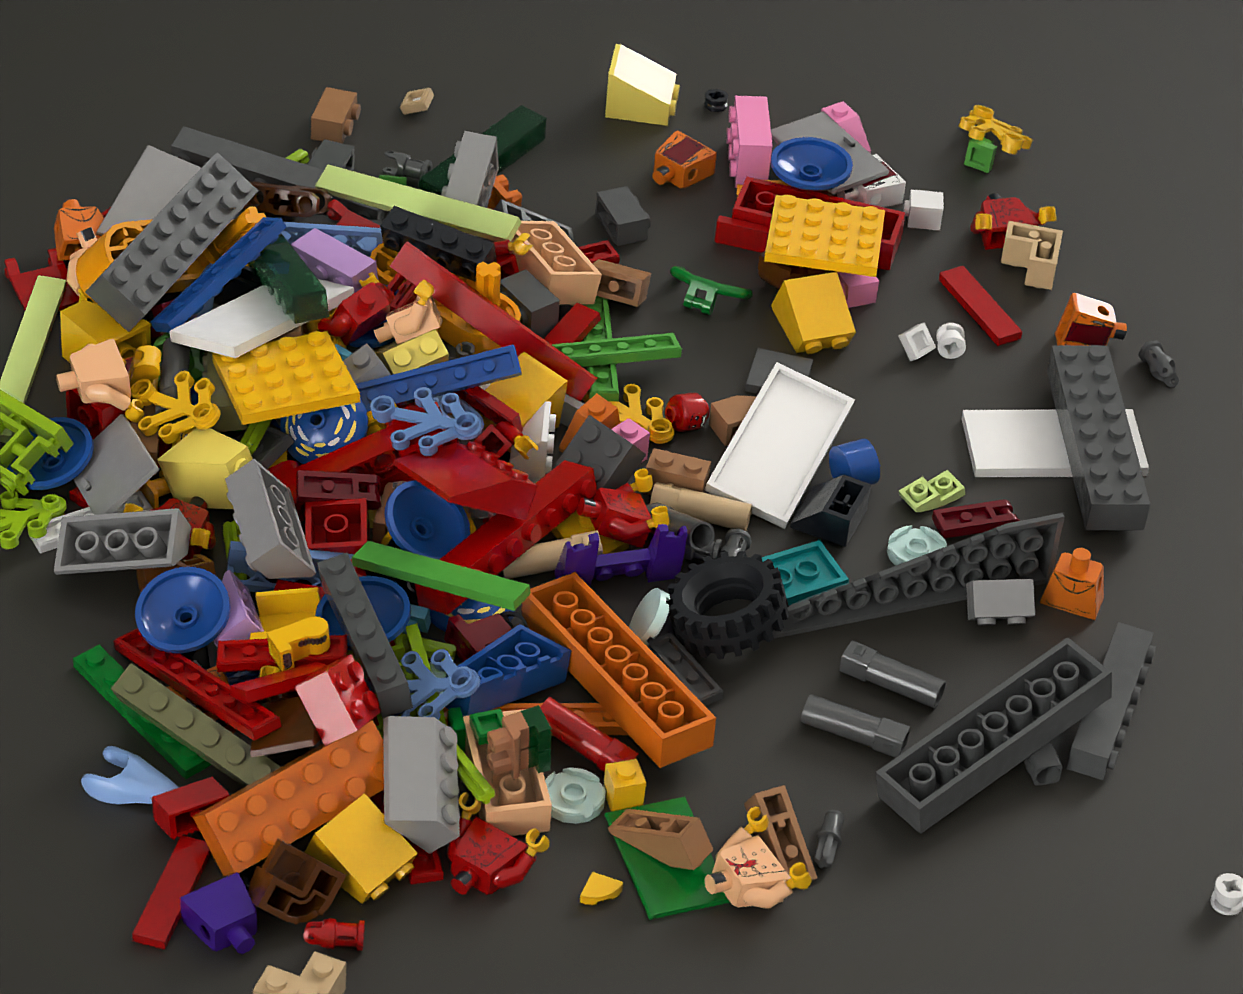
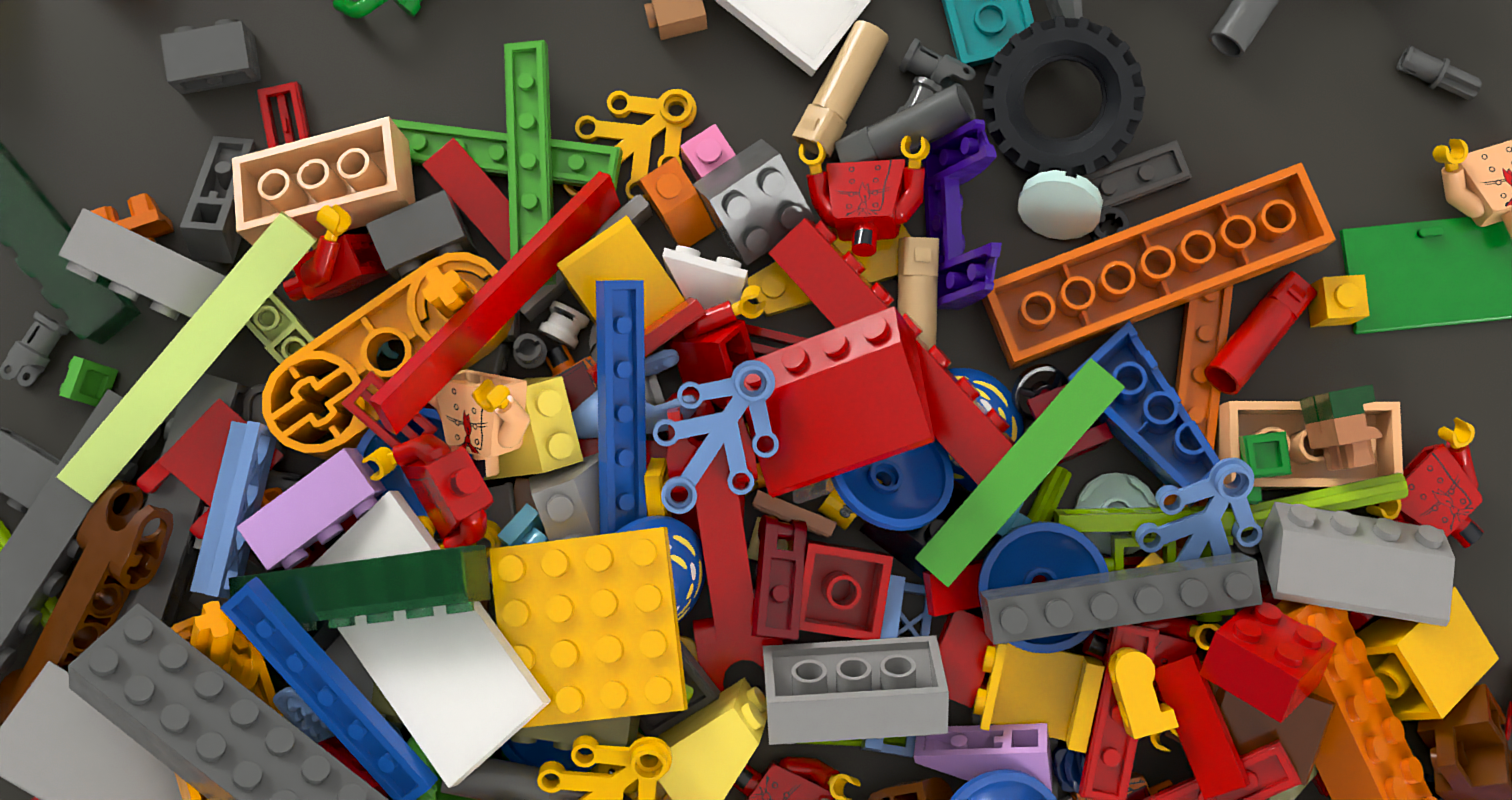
camera: 75 degrees left, 40 degrees up
(445, 245) = (314, 346): black brick -> none
(575, 795) = (1322, 362): light aqua tile -> none
(600, 888) = (1483, 366): yellow tile -> none
(622, 283) = (368, 90): medium nougat brick -> none
(666, 837) = (1432, 276): medium nougat slope -> none
(679, 470) = (784, 104): medium nougat brick -> none
(687, 411) = (652, 63): red head -> none
(783, 831) = (1422, 127): medium nougat slope -> none

